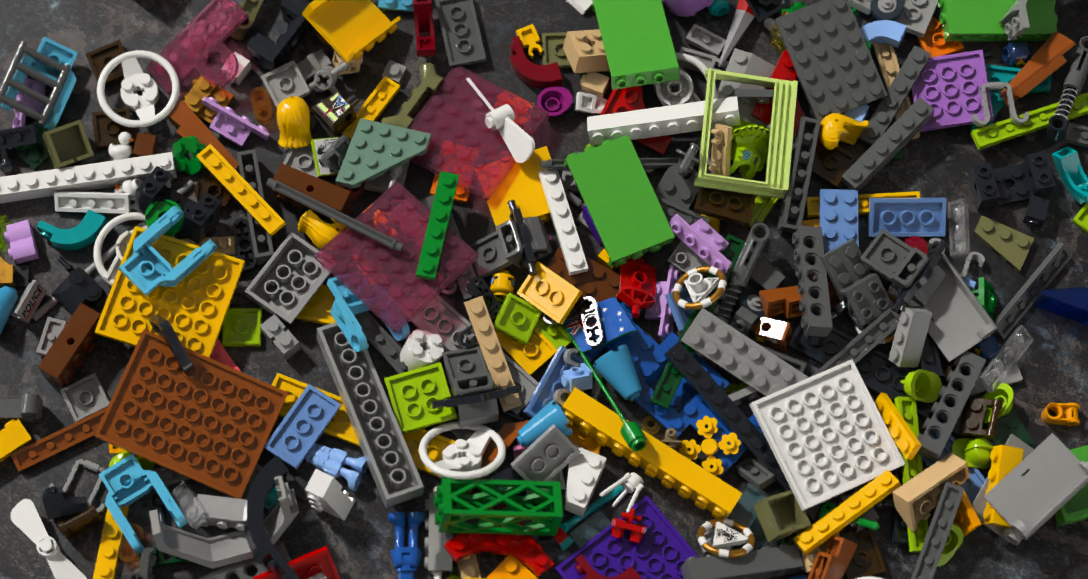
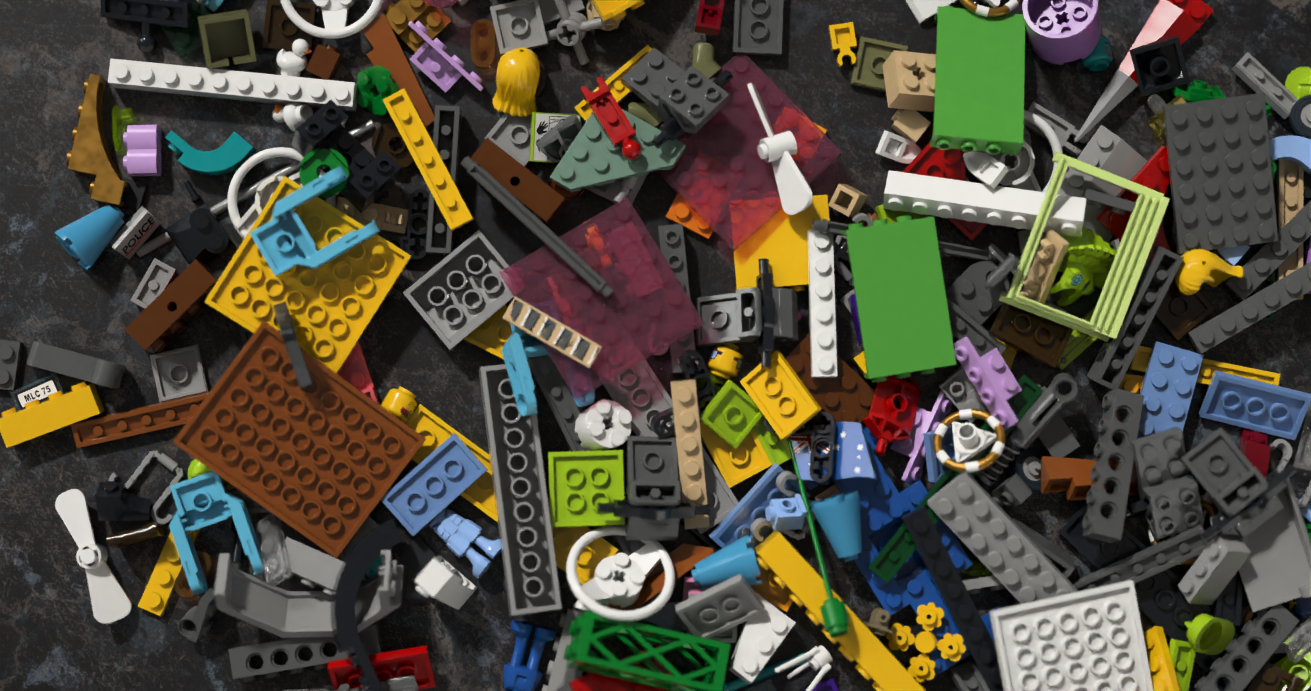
camera: 10 degrees right, 15 degrees up
(95, 201) = (242, 121): white plate -> none
(242, 327) = (392, 332): lime tile -> none
(263, 372) = (400, 403): none -> yellow head
(284, 341) = (438, 368): light grey piece -> none
(317, 230) = (514, 237): yellow piece -> none
(336, 112) = (570, 76): dark brown torso -> none
(365, 285) = (552, 332): none -> tile
(371, 127) = (612, 118): none -> red plate
(394, 71) = (661, 39): light grey plate -> none
(417, 101) = (680, 97): none -> dark grey piece
(437, 226) = (662, 274): green plate -> none
(532, 74) = (840, 94): dark red arch -> none
(554, 100) = (853, 135): magenta piece -> none
(562, 146) = (847, 200): none -> tan brick
(653, 430) = (853, 589): clear yellow plate -> none
(657, 95) = (985, 168): none -> white plate
(706, 40) = (1067, 100): light grey plate -> none
(772, 334) = (1049, 520): dark orange torso -> none

